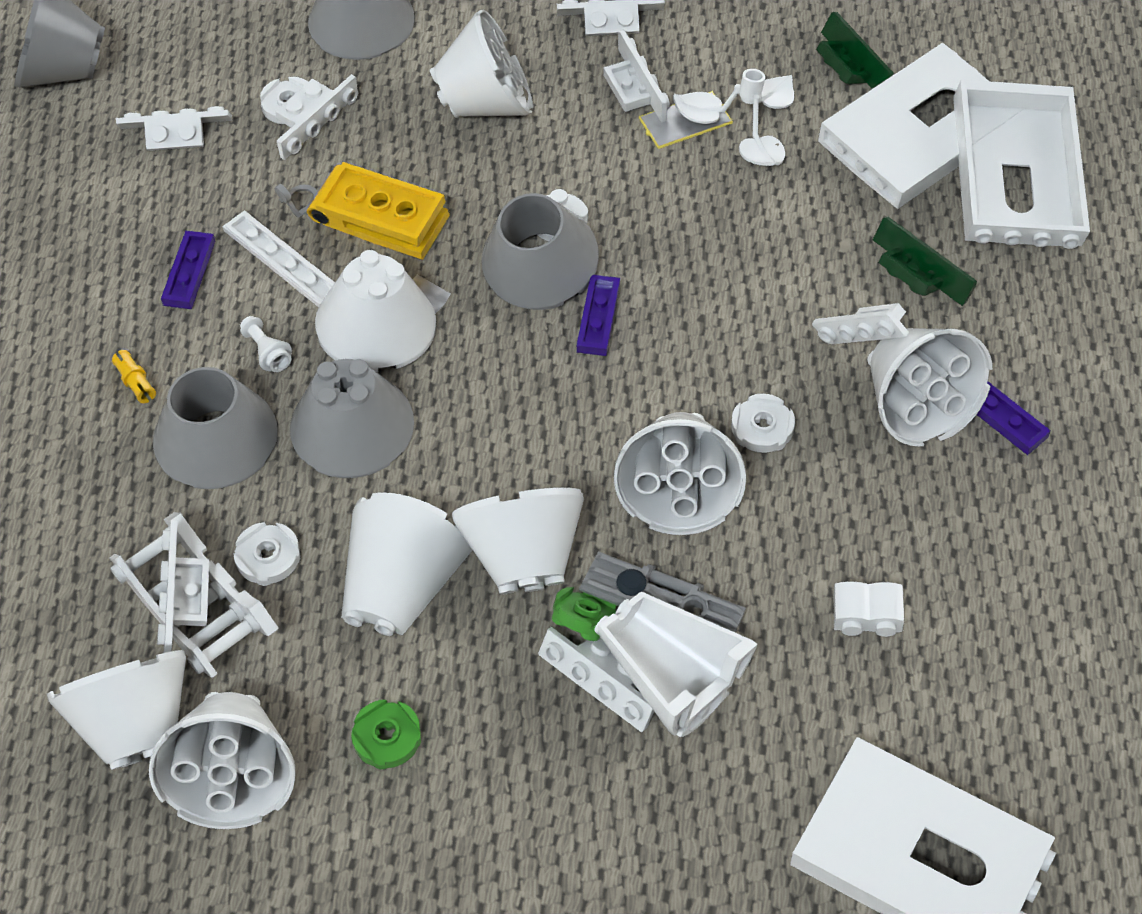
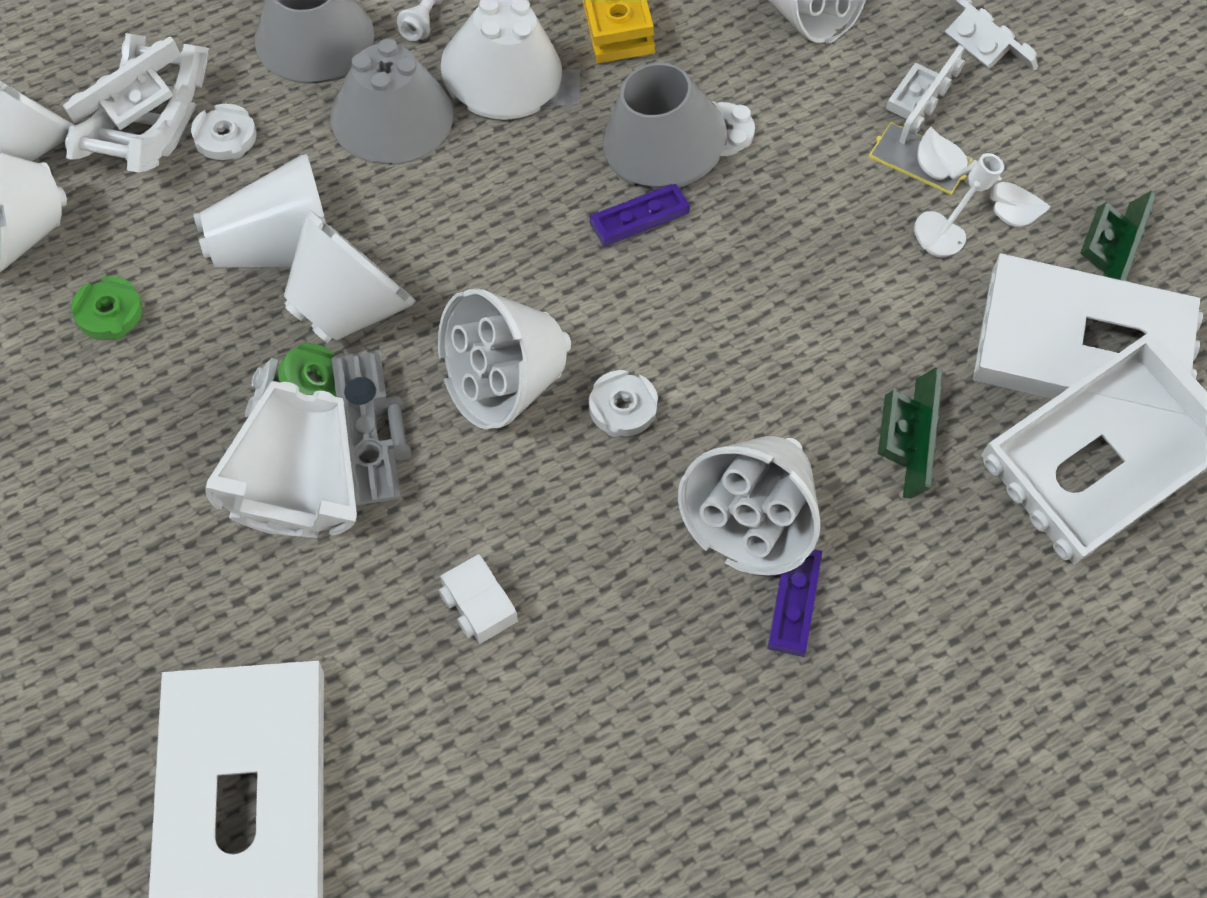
camera: 50 degrees right, 5 degrees up
(866, 325) = (783, 420): white bracket -> none

